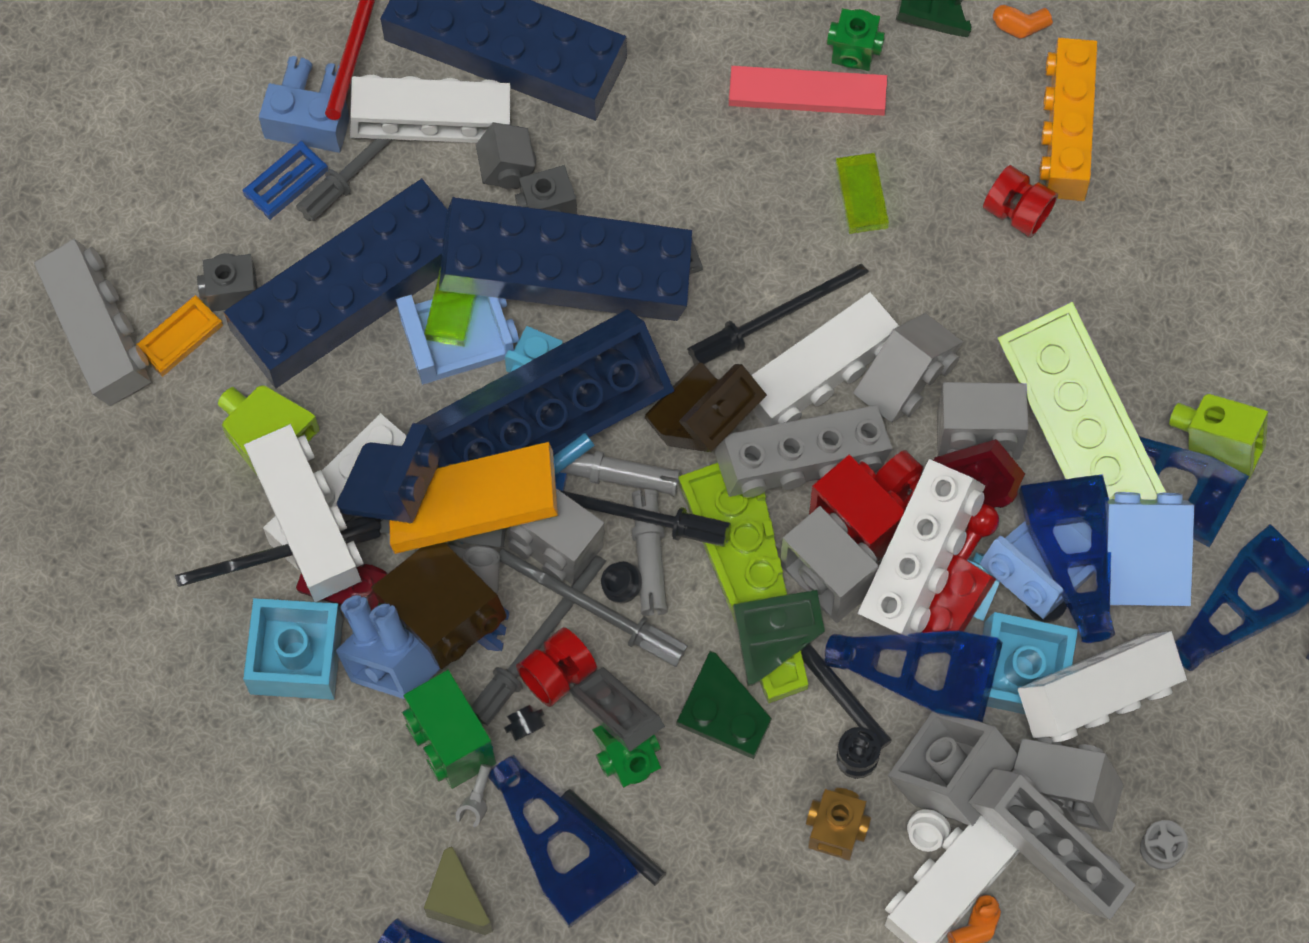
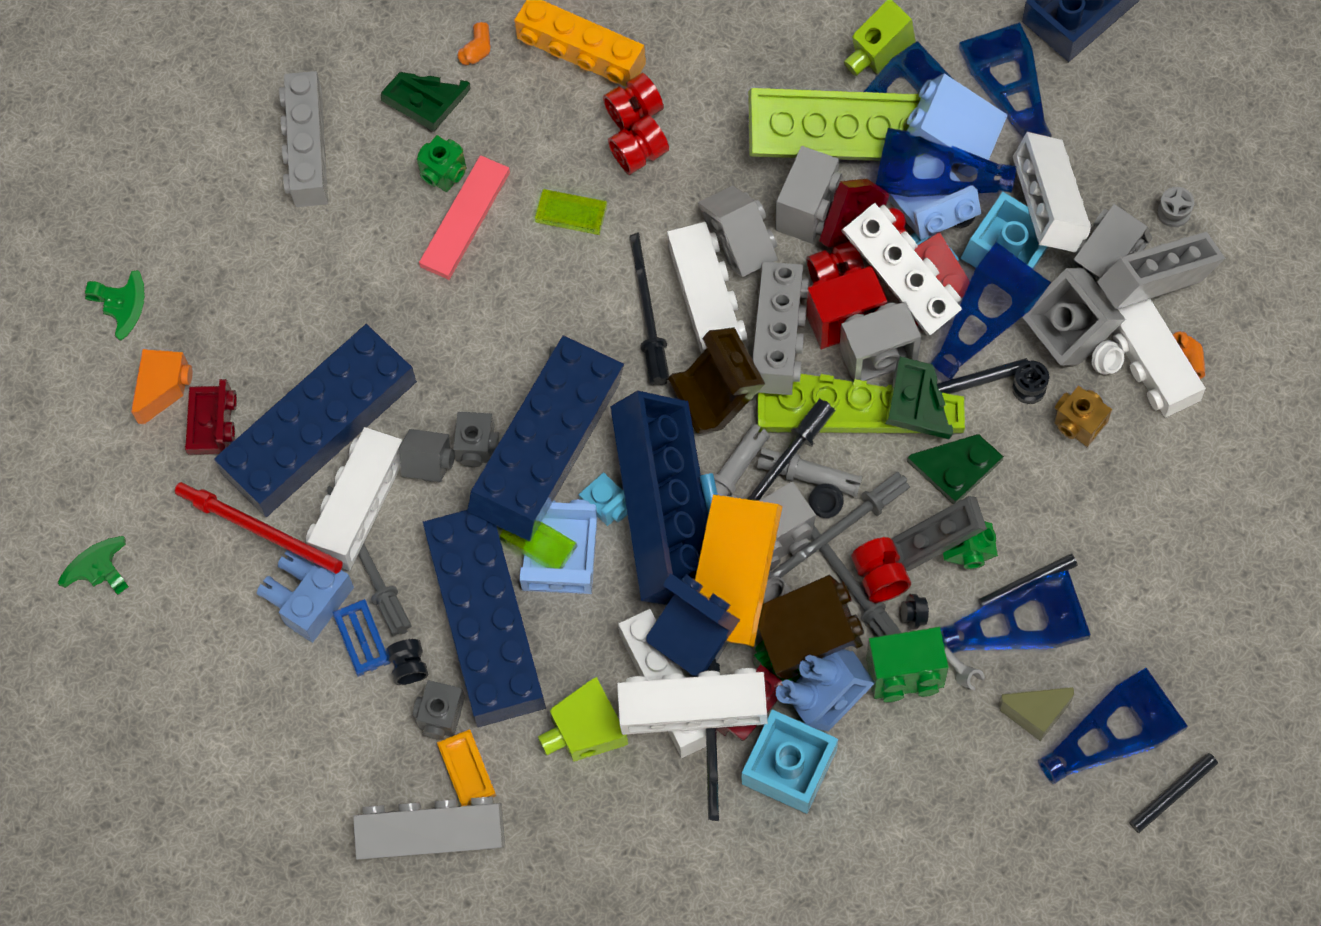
camera: 65 degrees left, 0 degrees up
(271, 231) = (407, 661): none -> black wheel
(971, 227) = (637, 145): none -> red wheel

